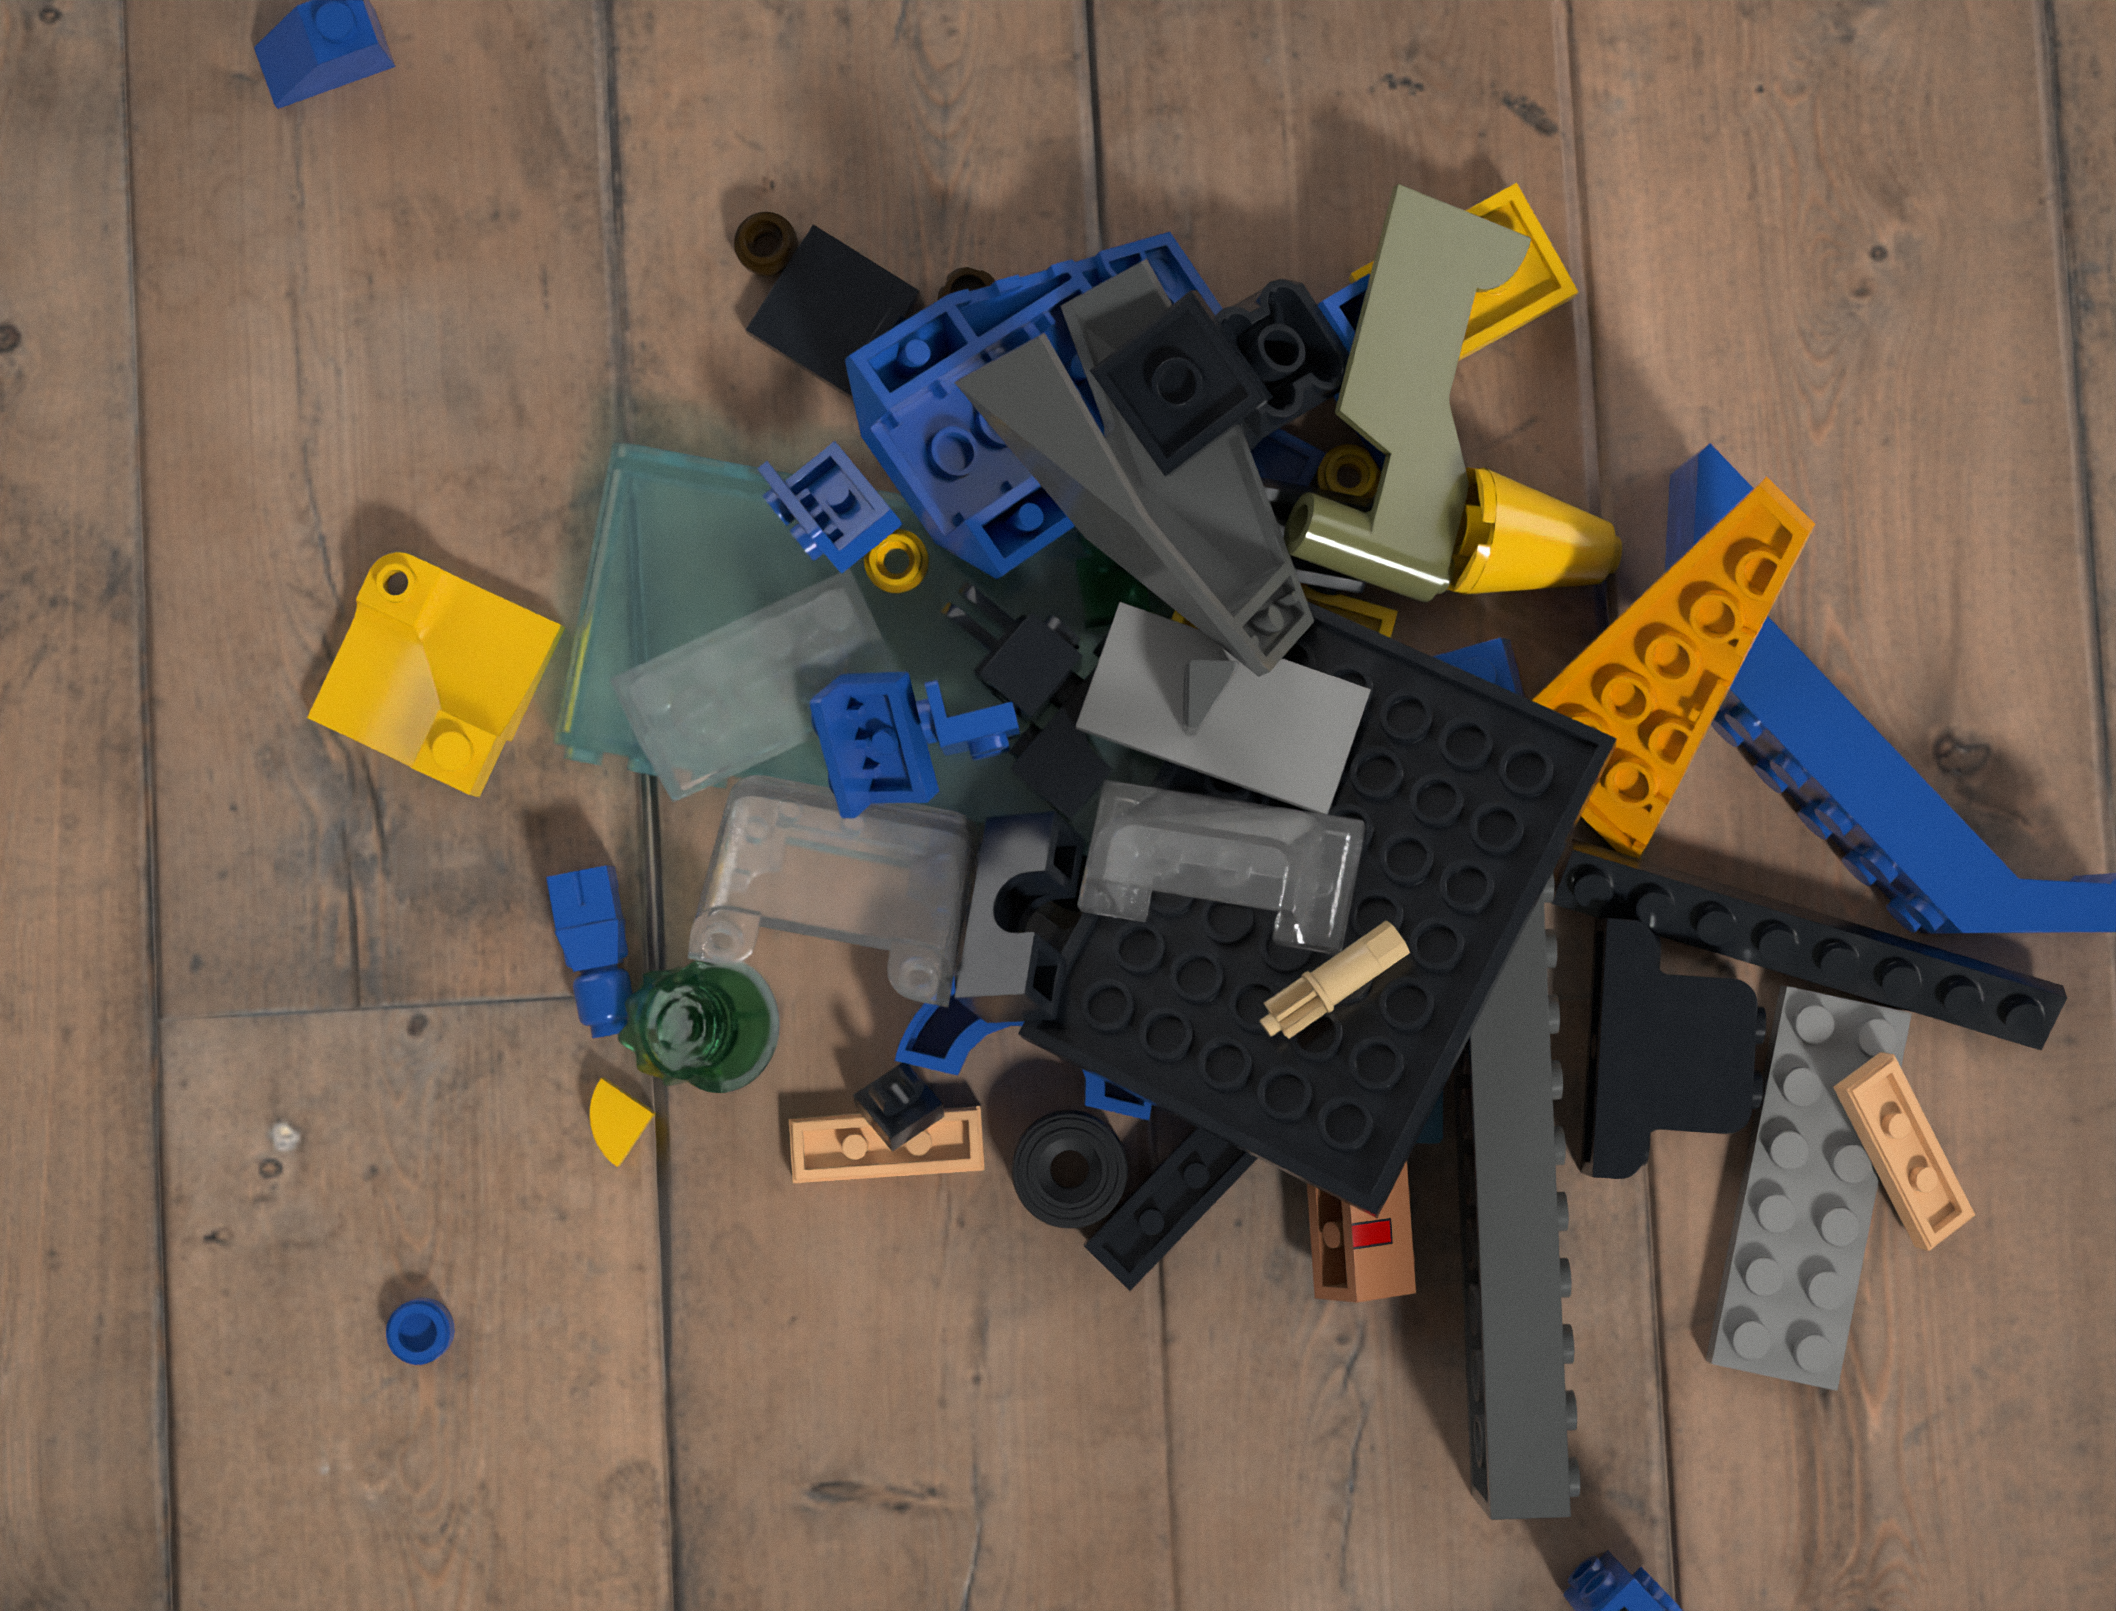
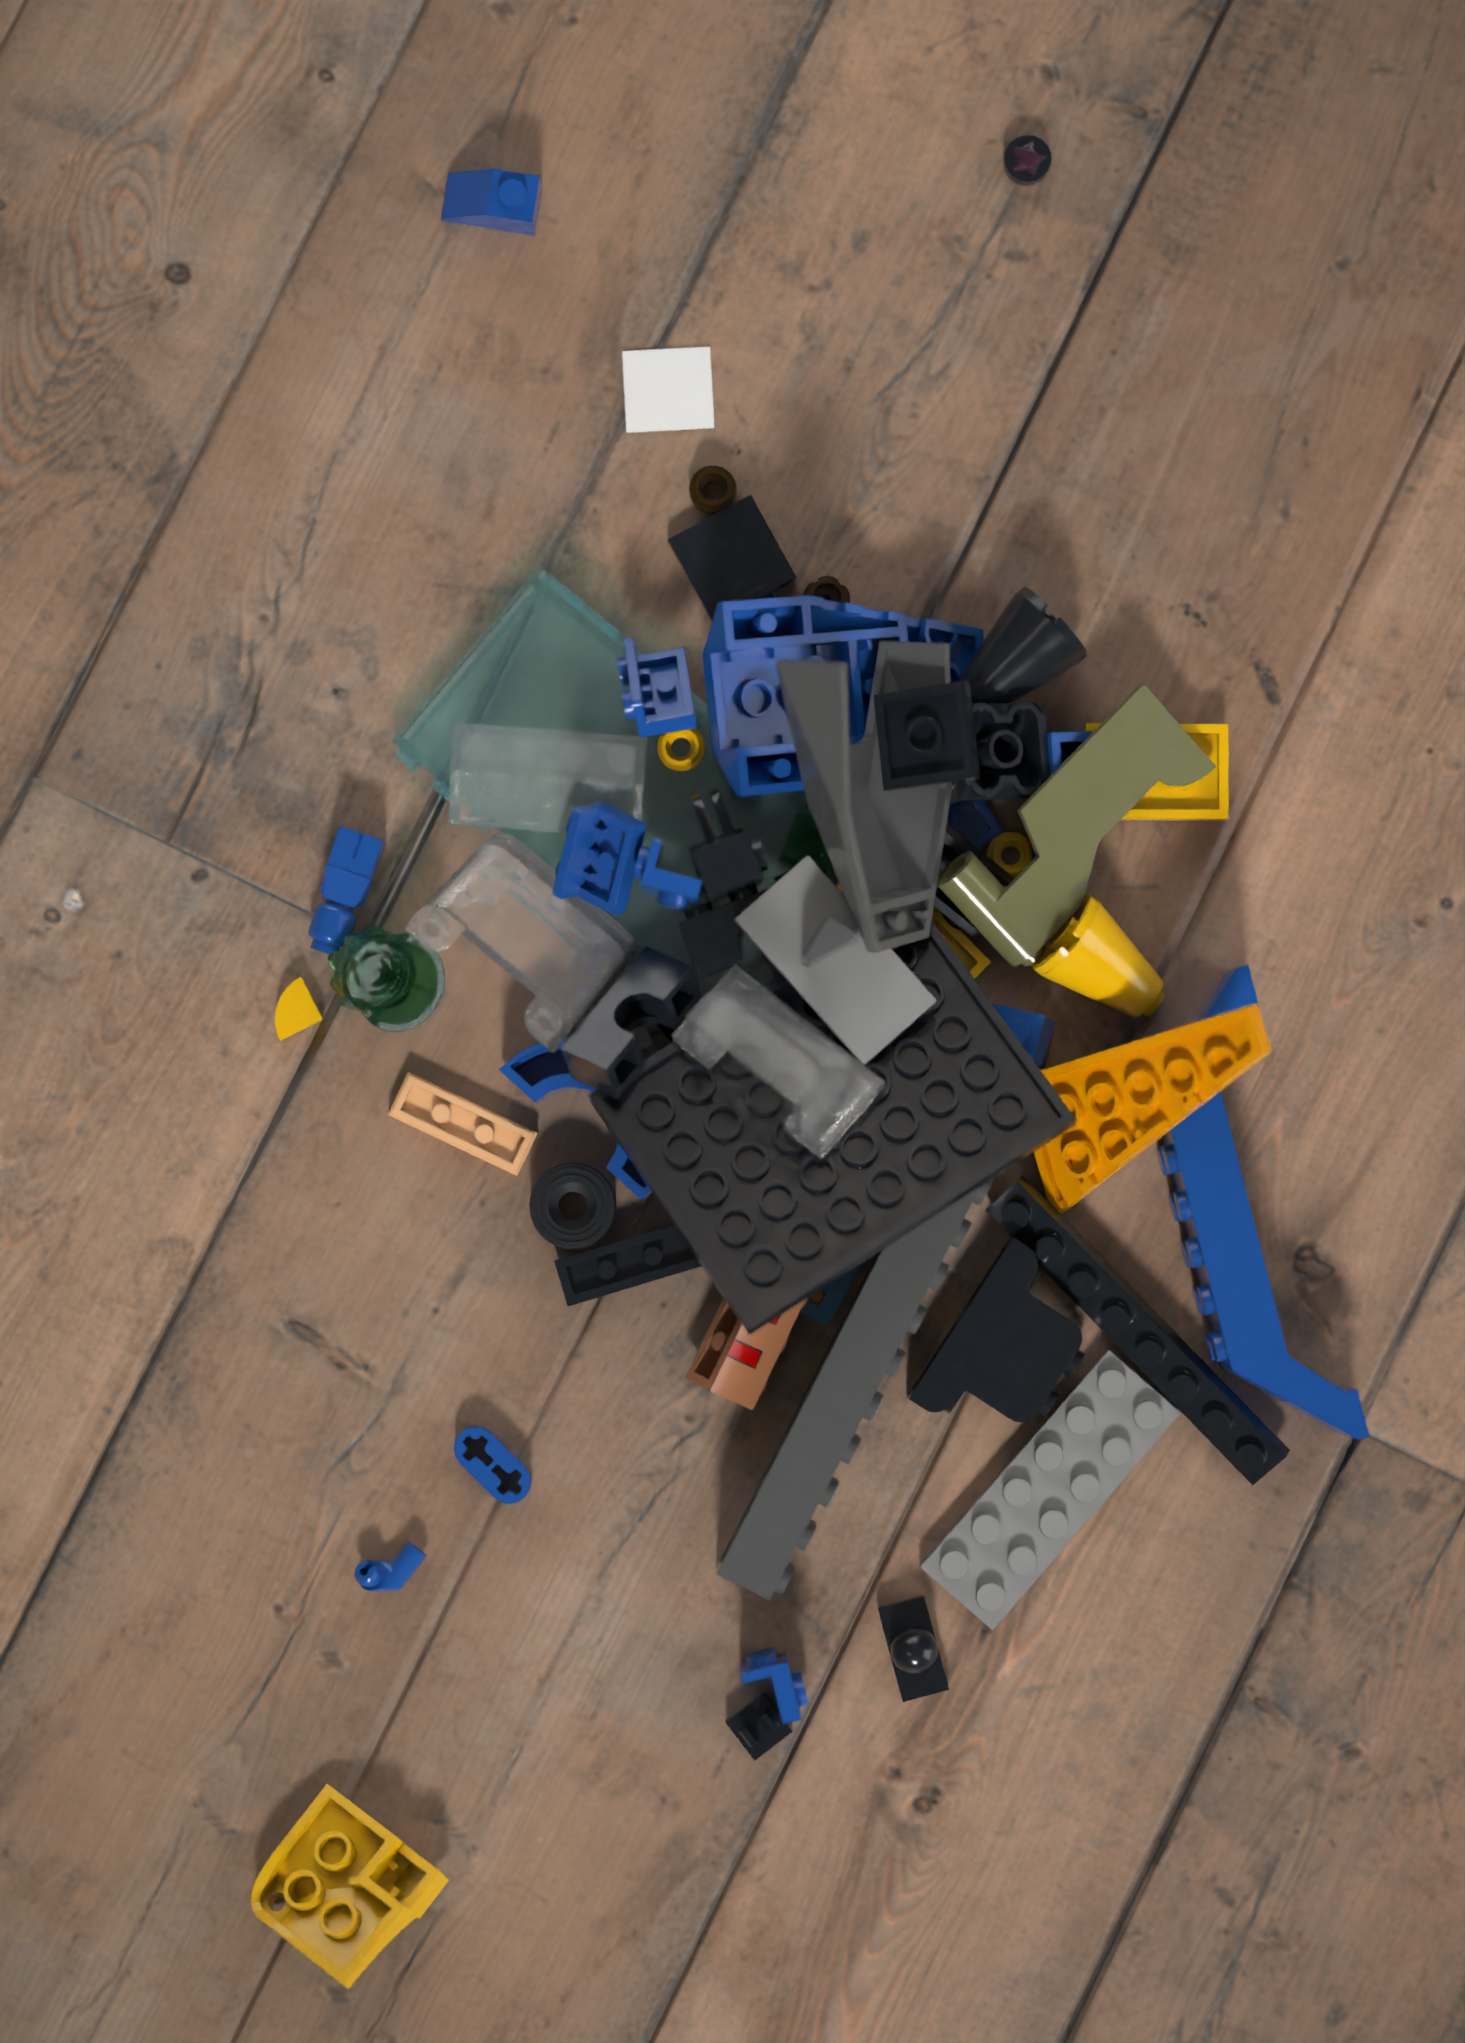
camera: 25 degrees right, 0 degrees up
(420, 1331) = (92, 1075): blue tile -> none
(435, 672) = (340, 651): yellow slope -> none
(649, 158) = (668, 389): none -> white sticker
(898, 1105) = (484, 1102): black tile -> none
(1141, 1540) = (501, 1455): none -> blue beam
(1234, 224) = (1021, 652): none -> black cone
(1333, 981) = (806, 1171): tan piece -> none
(1755, 1462) = (913, 1648): none -> black tile
(1904, 1151) = (1123, 1498): light nougat tile -> none

